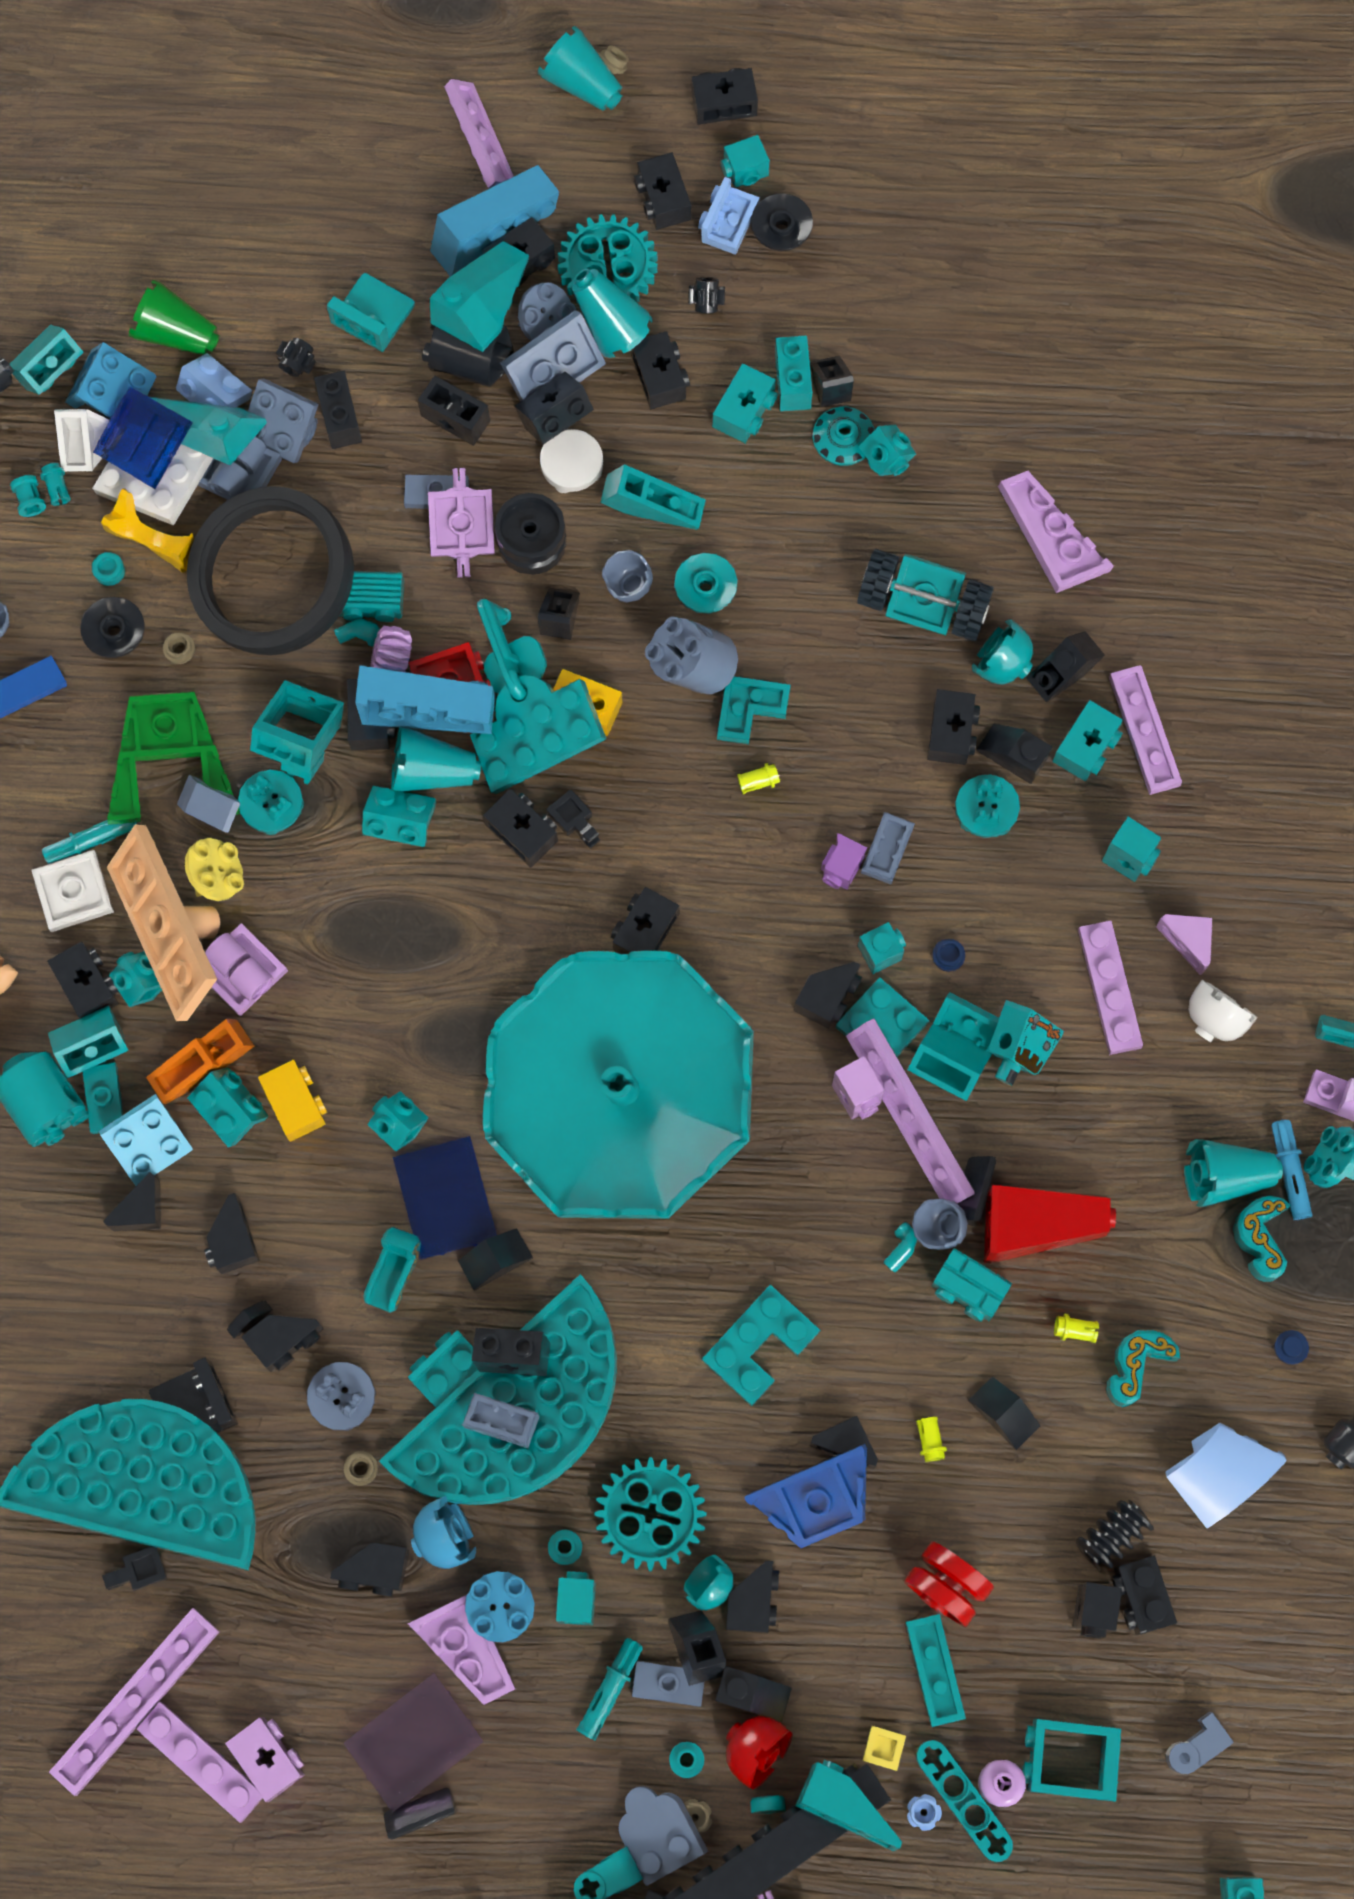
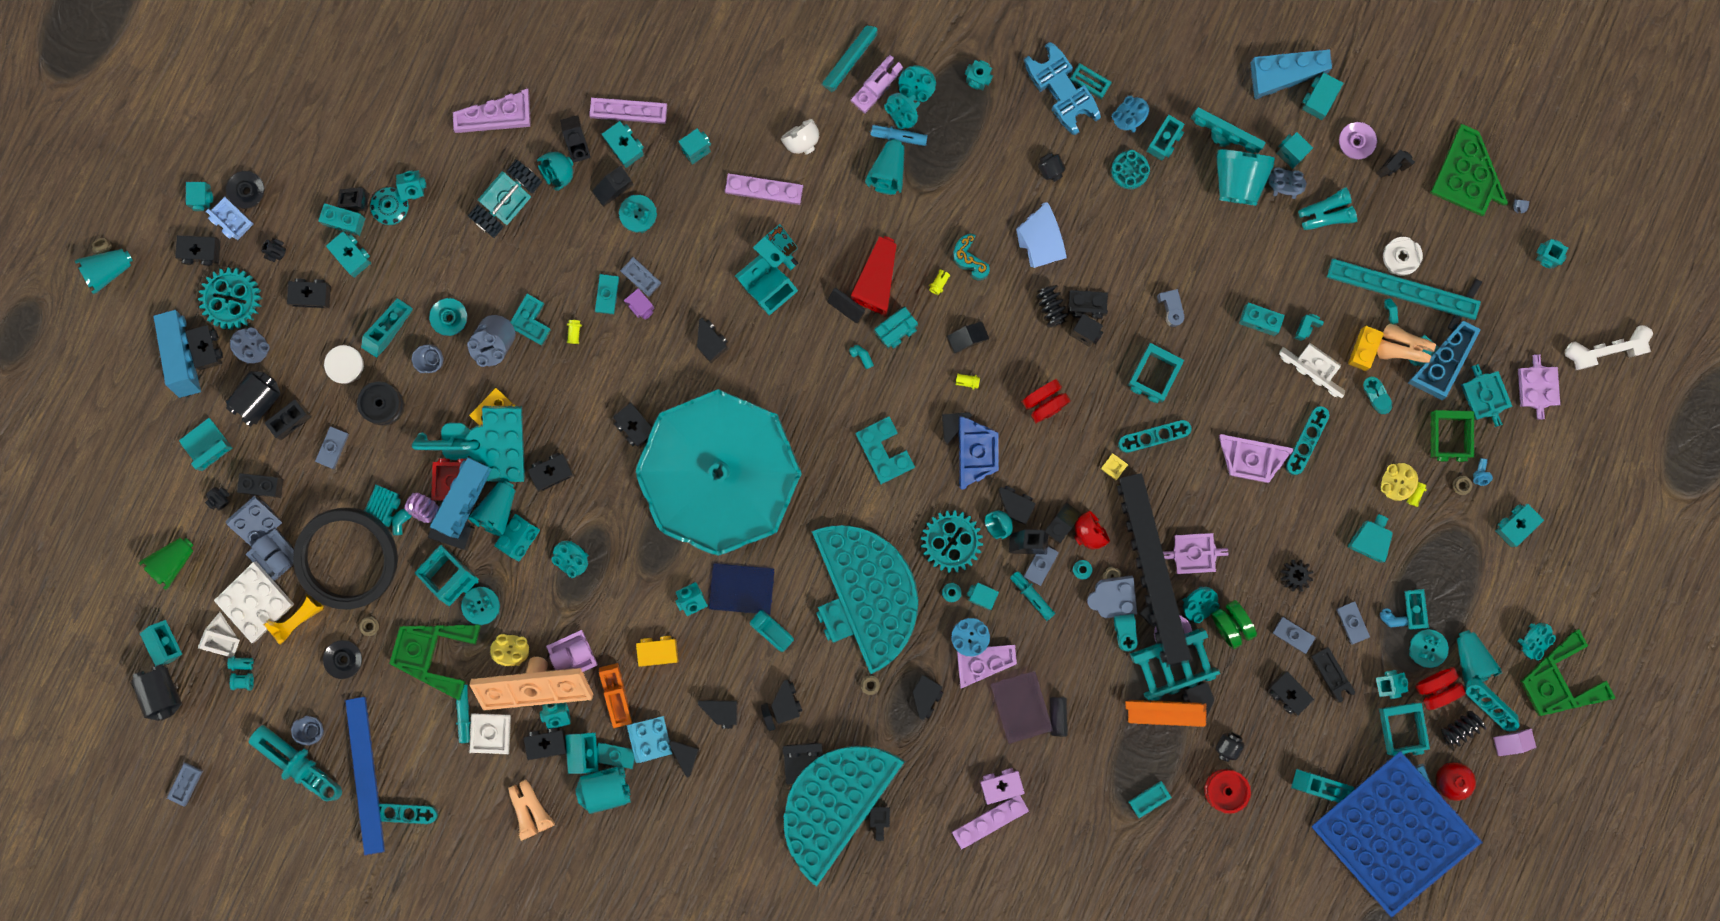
camera: 70 degrees left, 10 degrees up
(106, 380) = (191, 611): dark azure bracket -> none
(108, 568) = (304, 650): teal tile -> none
(134, 1702) = (947, 845): lavender plate -> none
(142, 437) = (235, 603): clear blue piece -> none
(208, 804) = (471, 640): sand blue slope -> none
(211, 383) = (216, 553): light blue bracket -> none
(217, 429) = (242, 565): teal wedge -> none
(227, 1105) = (646, 688): teal bracket -> none
(353, 1406) = (820, 687): sand blue plate -> none
(394, 907) = (570, 558): none -> teal plate
(442, 1535) = (922, 654): dark azure cylinder -> none
(461, 523) = (358, 440): lavender plate -> none
(478, 132) = (118, 342): lavender plate -> none
(478, 296) = (227, 379): teal wedge -> none
(494, 1258) = (785, 574): black slope -> none
(501, 1420) = (875, 601): sand blue plate -> none
(511, 1351) = (841, 582): black brick -> none
(554, 407) = (309, 362): black brick -> none
(558, 613) = (432, 405): black slope -> none
(560, 349) = (281, 352): sand blue plate -> none
(572, 816) = (555, 442): black plate -> none
(610, 313) = (267, 308): teal cone -> none
(724, 95) = (153, 201): black brick -> none
(768, 1804) = (1120, 536): teal tile -> none
(839, 807) = (607, 294): none -> teal plate
(841, 1802) = (1135, 497): teal slope -> none
(858, 1088) = (770, 345): lavender brick -> none
(881, 947) = (695, 302): teal brick -> none
(894, 1015) = (736, 318): teal plate -> none
(911, 1114) = (793, 323): lavender plate -> none
(926, 1802) = (1152, 464): light blue plate -> none
(935, 1670) = (1085, 425): teal plate -> none
(939, 1224) = (858, 331): sand blue hair -> none
(948, 955) = (713, 268): dark blue plate -> none
(949, 709) = (594, 222): black brick -> none
(988, 1783) = (1147, 415): lavender head -> none
(1190, 938) = (754, 135): lavender slope -> none
(1256, 1240) = (927, 170): teal animal -> none
(1291, 1347) = (991, 175): dark blue plate -> none

